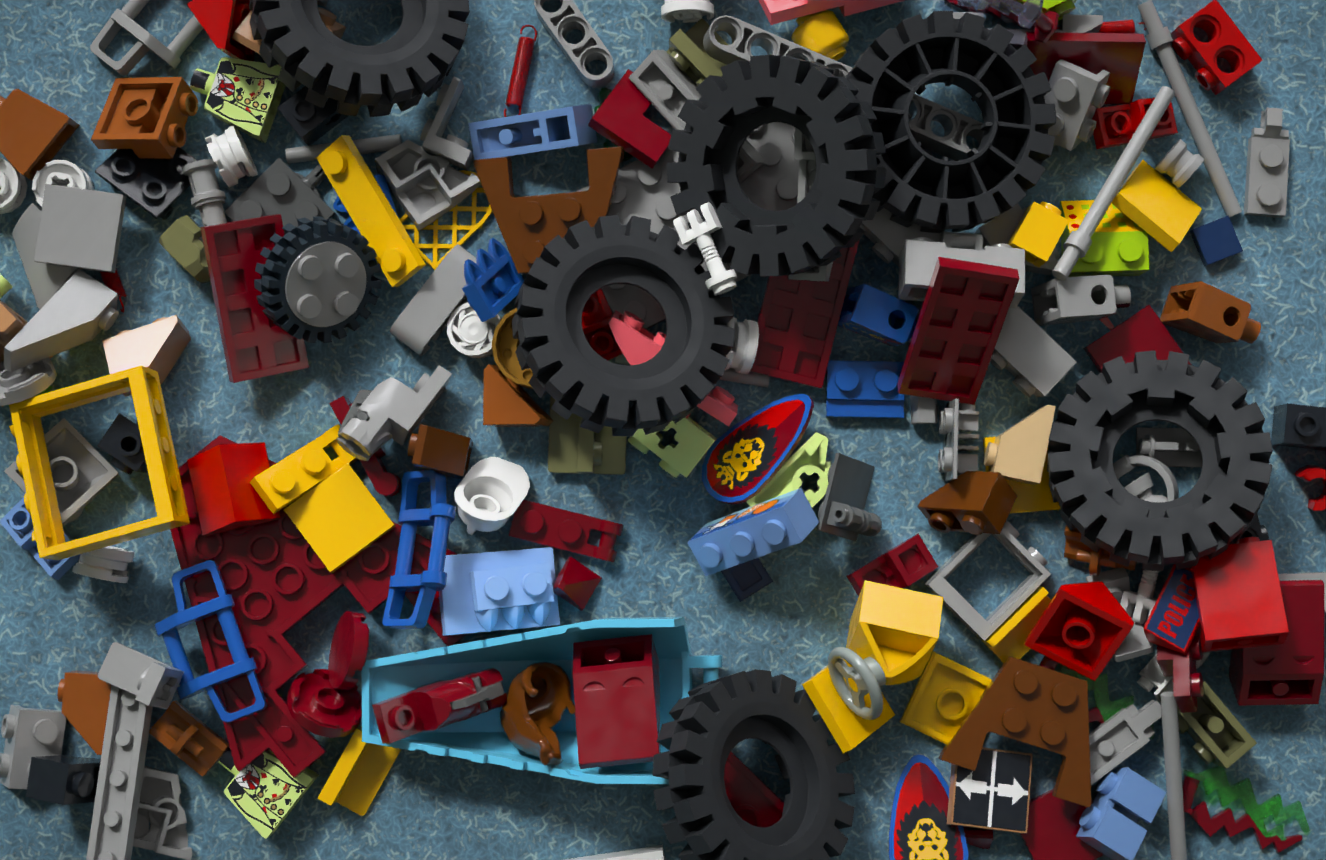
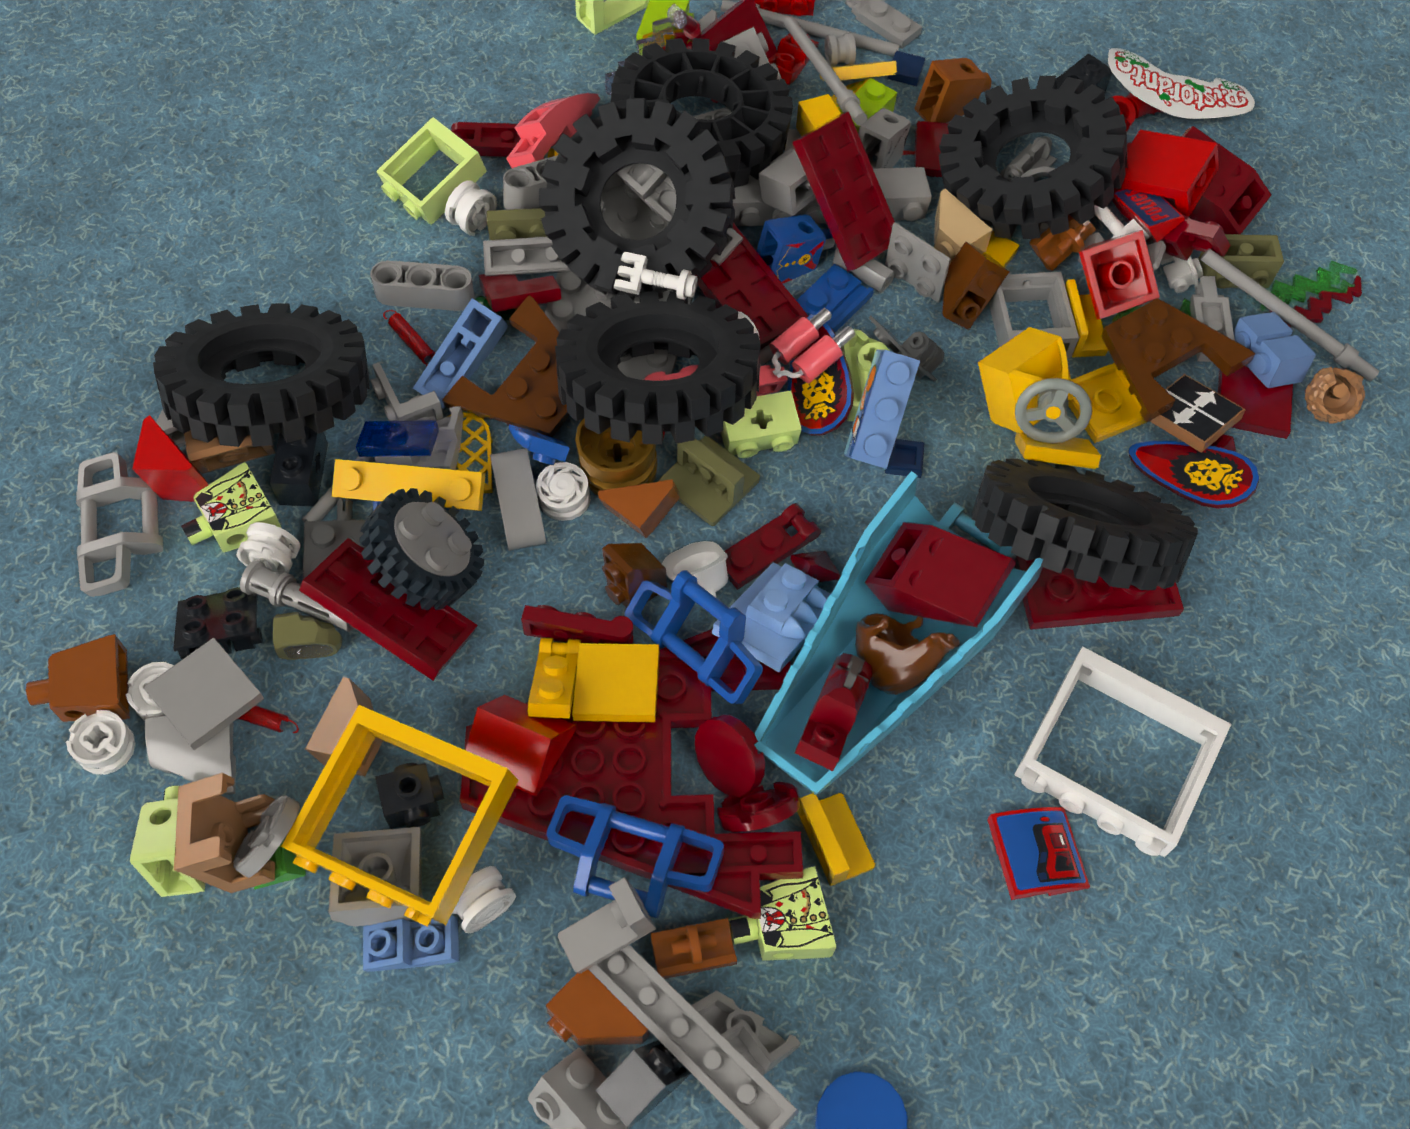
camera: 55 degrees left, 25 degrees down
(65, 321) = (261, 763): slope -> none
(146, 116) = (175, 578): dark orange plate -> none
(389, 413) = (570, 580): light grey plate -> none
(403, 163) = (397, 438): none -> clear blue plate
(764, 441) = (817, 357): none -> coral piece
(896, 567) = (970, 380): dark red slope -> none

